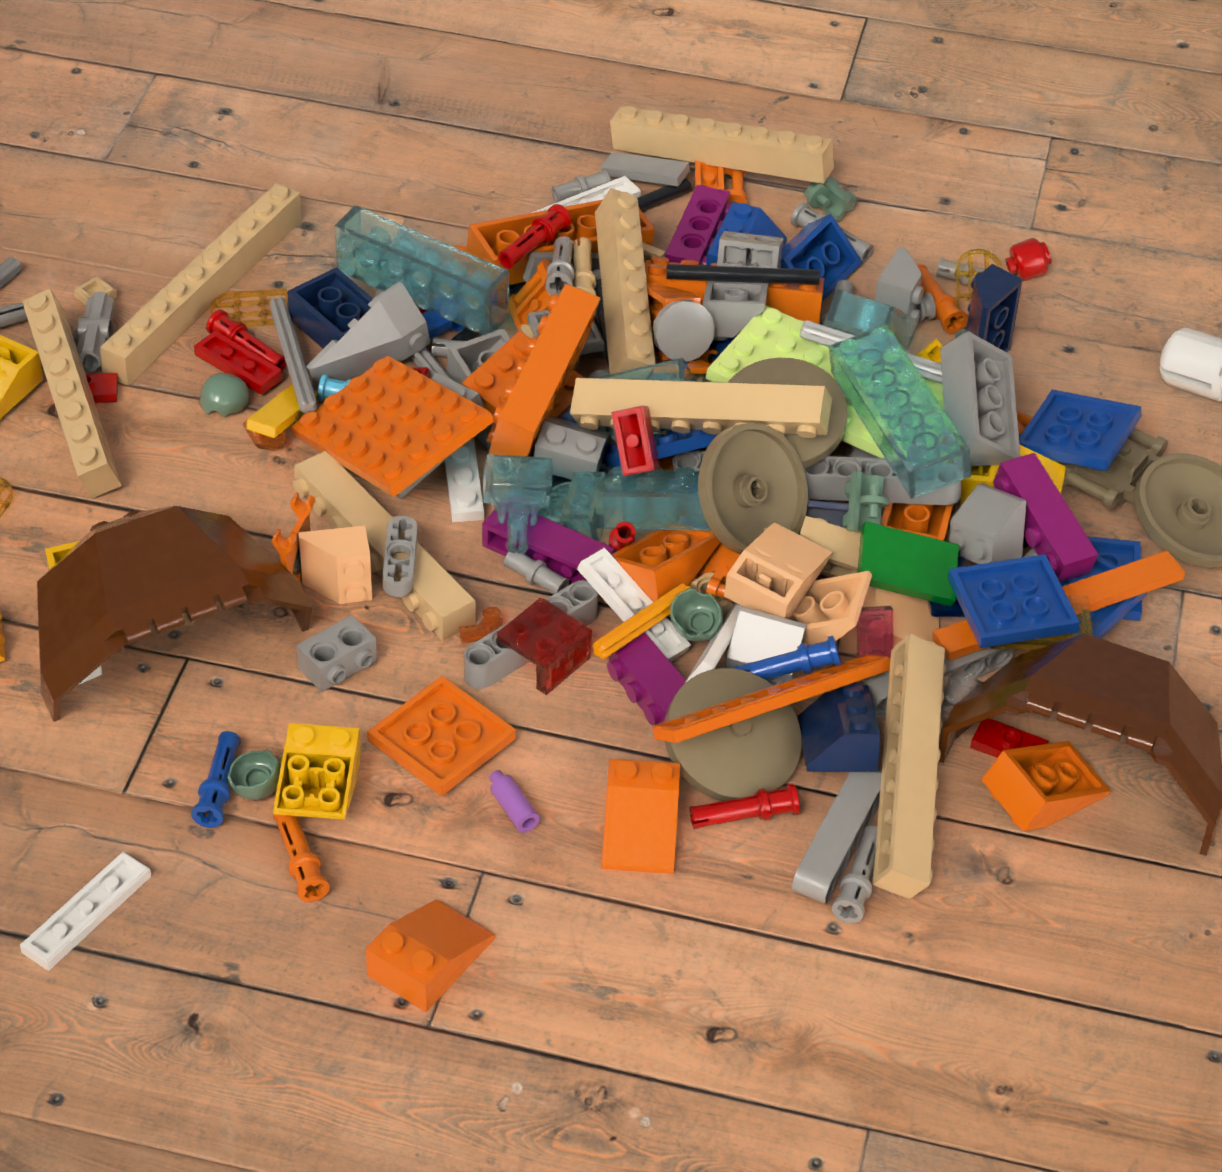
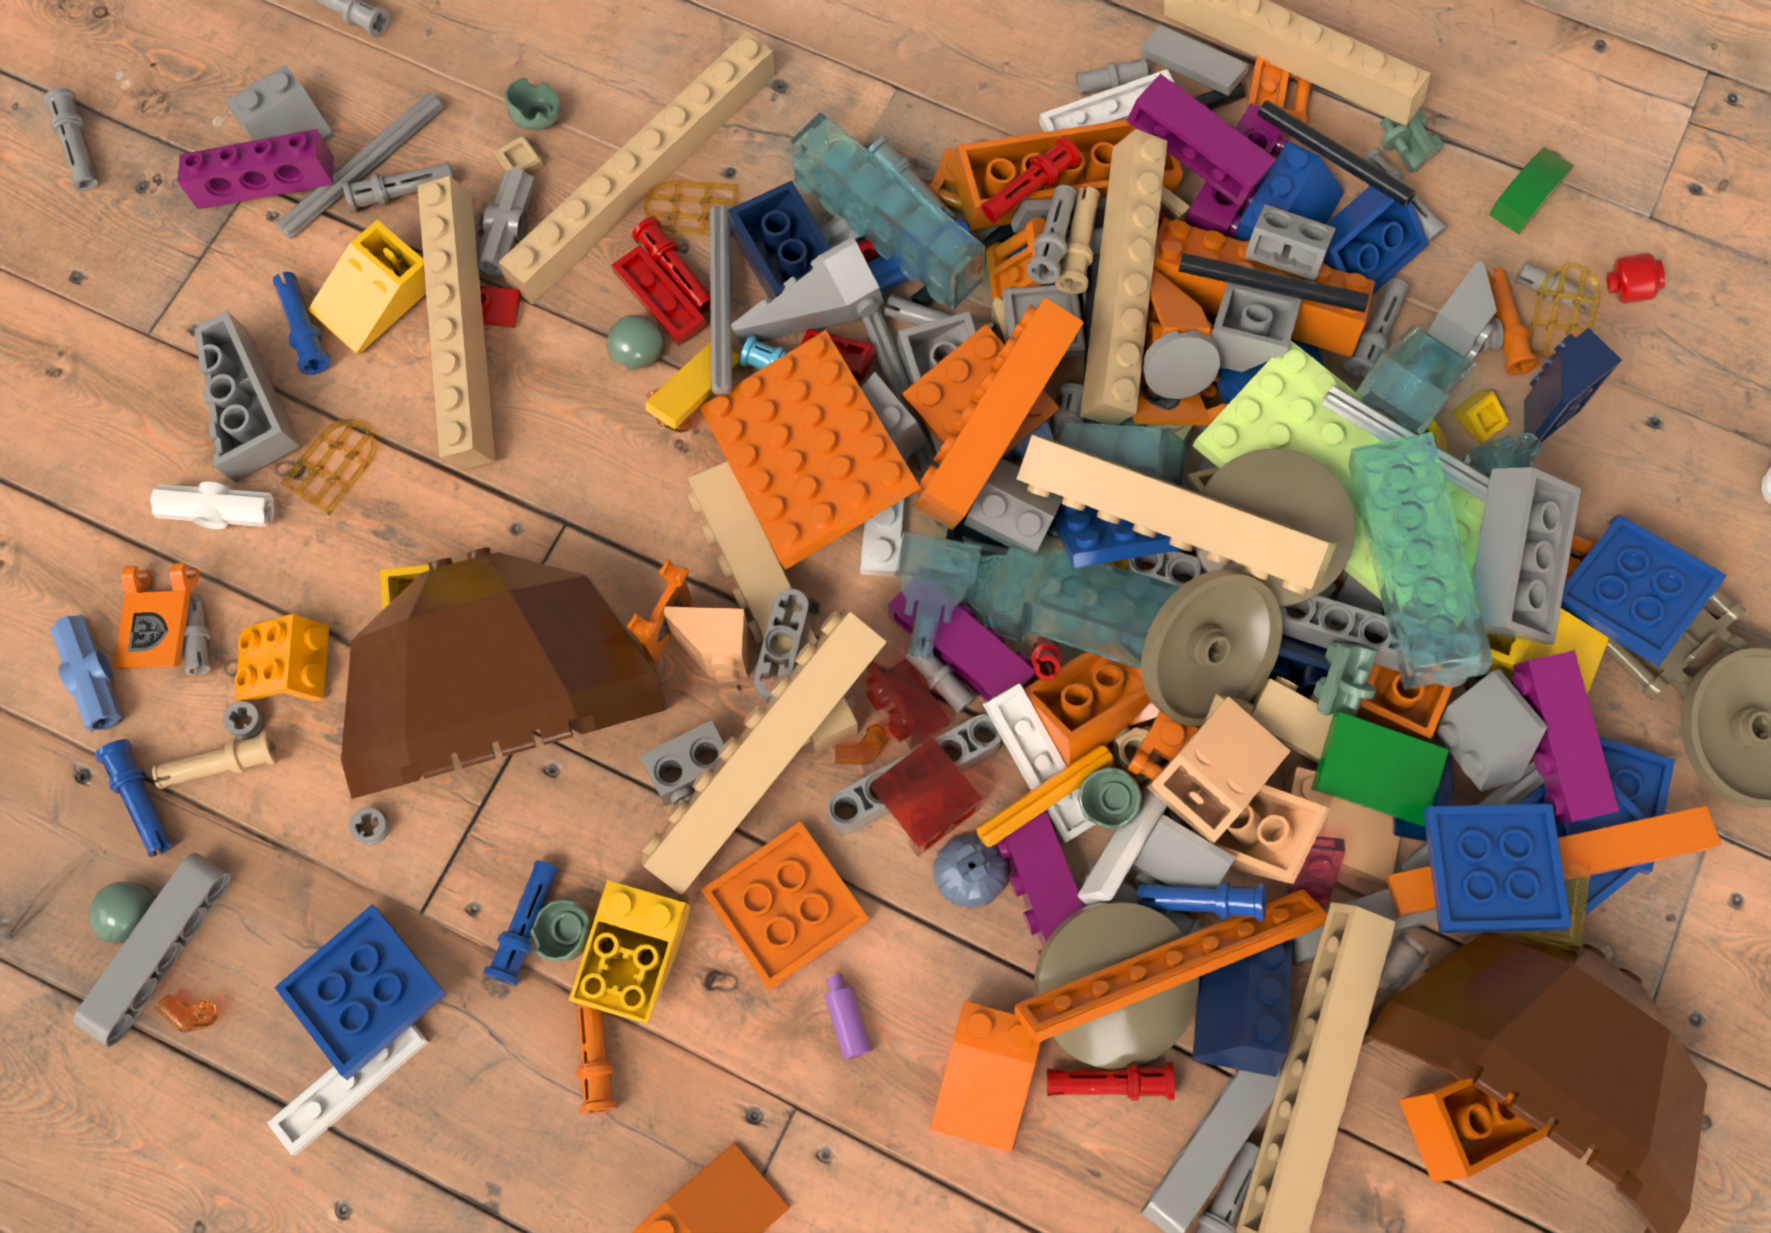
camera: 15 degrees right, 25 degrees up
(63, 728) = (359, 820): none -> light grey bush
(85, 839) = (360, 992): none -> blue plate
(101, 257) = (532, 105): none -> sand green hair
(401, 619) = (761, 751): none -> tan brick
(503, 584) = (906, 702): none -> clear red bracket
(592, 692) = (967, 885): none -> sand blue hair
(635, 440) = (1085, 543): red slope -> none
(668, 202) = (1201, 139): none -> magenta brick
(772, 201) = (1336, 153): none -> black piece
(931, 218) = (1530, 190): none -> green slope

